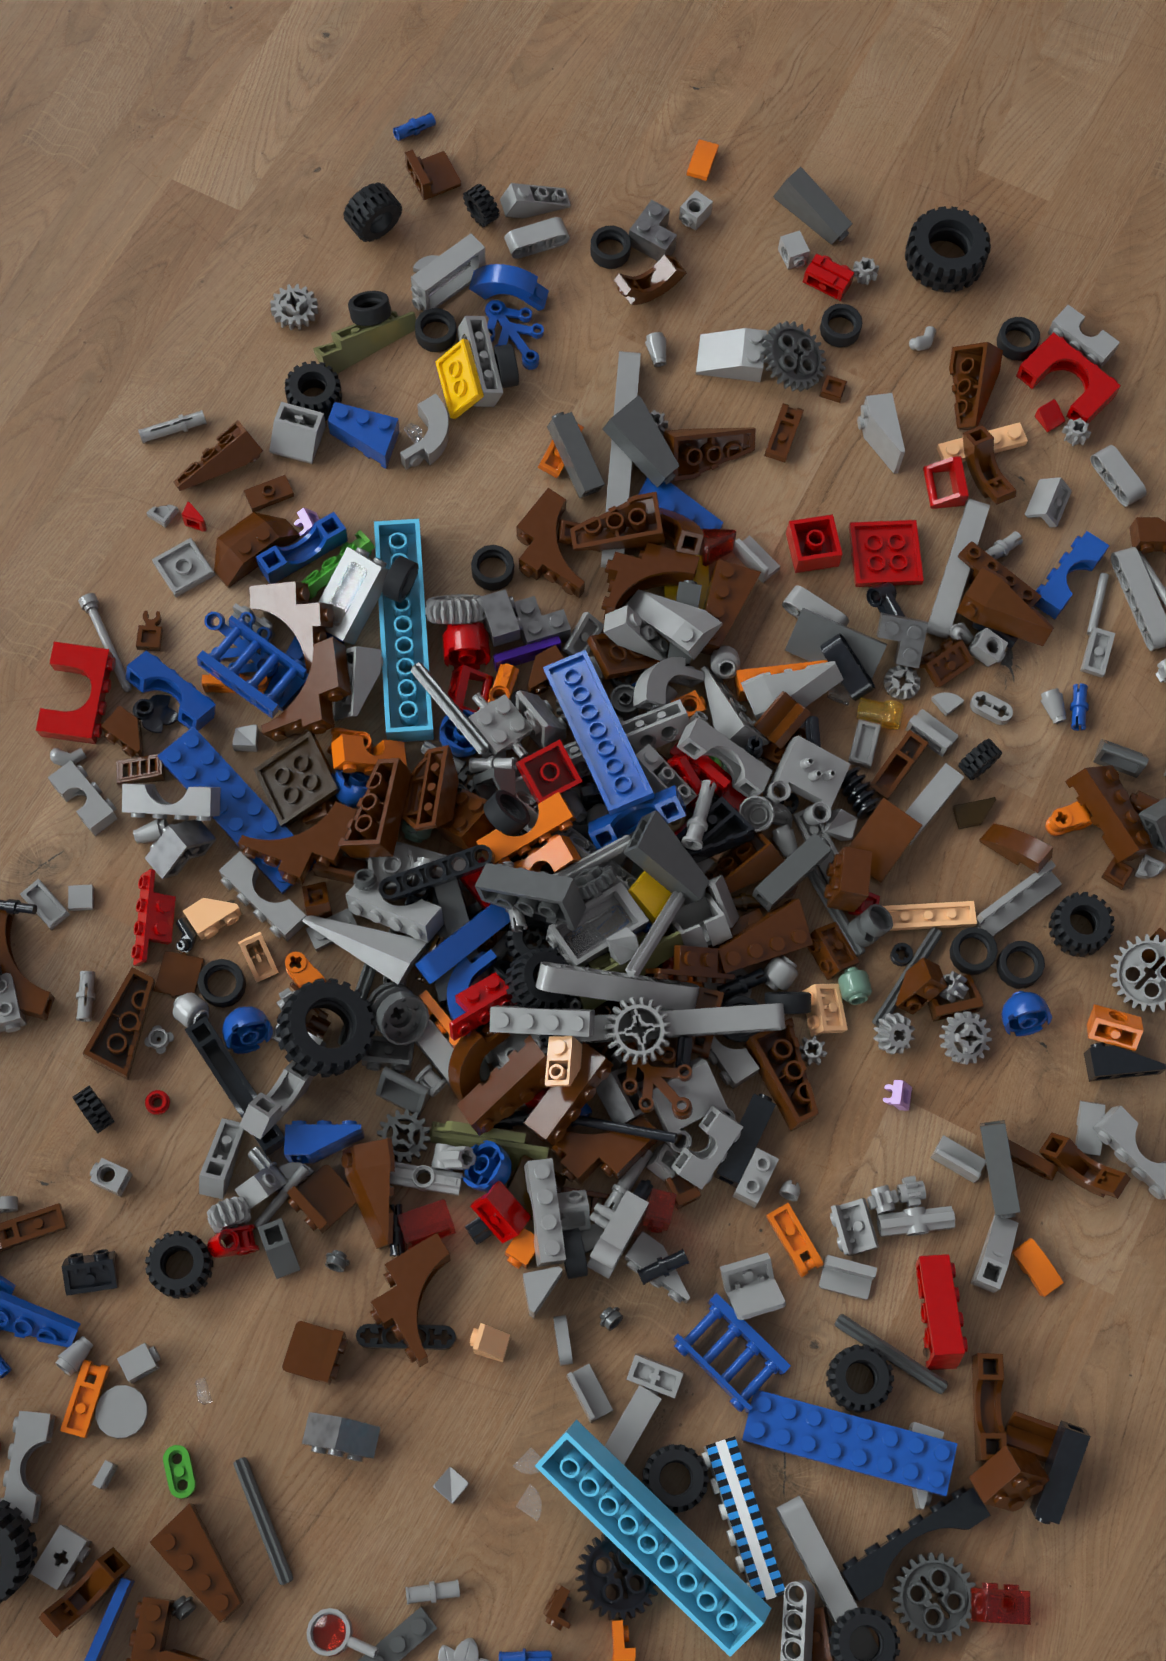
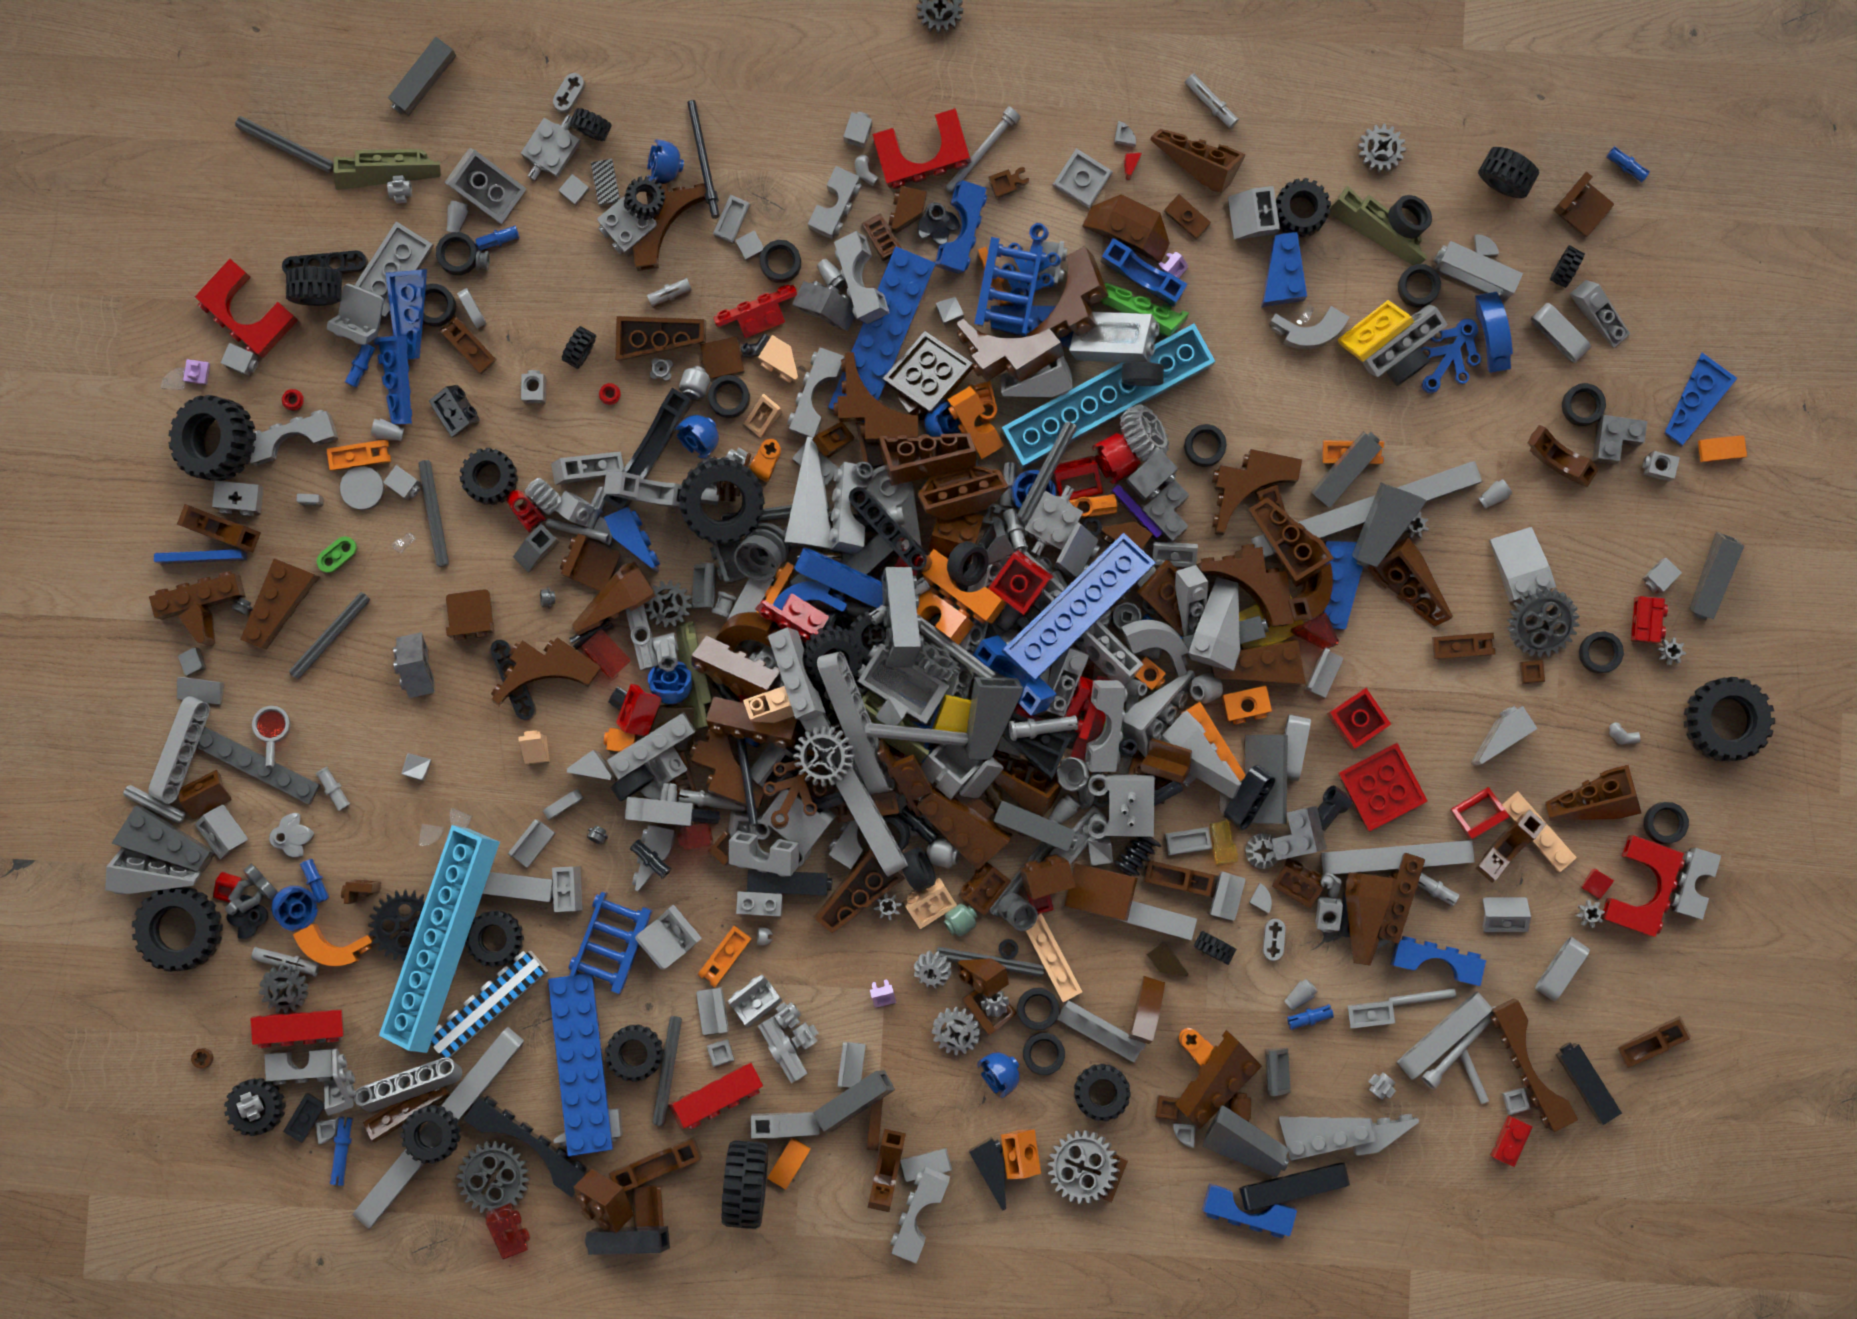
camera: 75 degrees right, 15 degrees up
(24, 744) = (858, 129): none -> light grey brick
(107, 857) = (780, 244): none -> black tyre
(187, 1344) = (433, 513): none -> dark grey axle
(648, 157) = (1702, 393): none -> blue wing
(756, 648) = (1258, 698): none -> orange brick
(893, 1289) = (720, 1052): none -> light grey tile
(1049, 1314) = (744, 1184): none -> black tyre

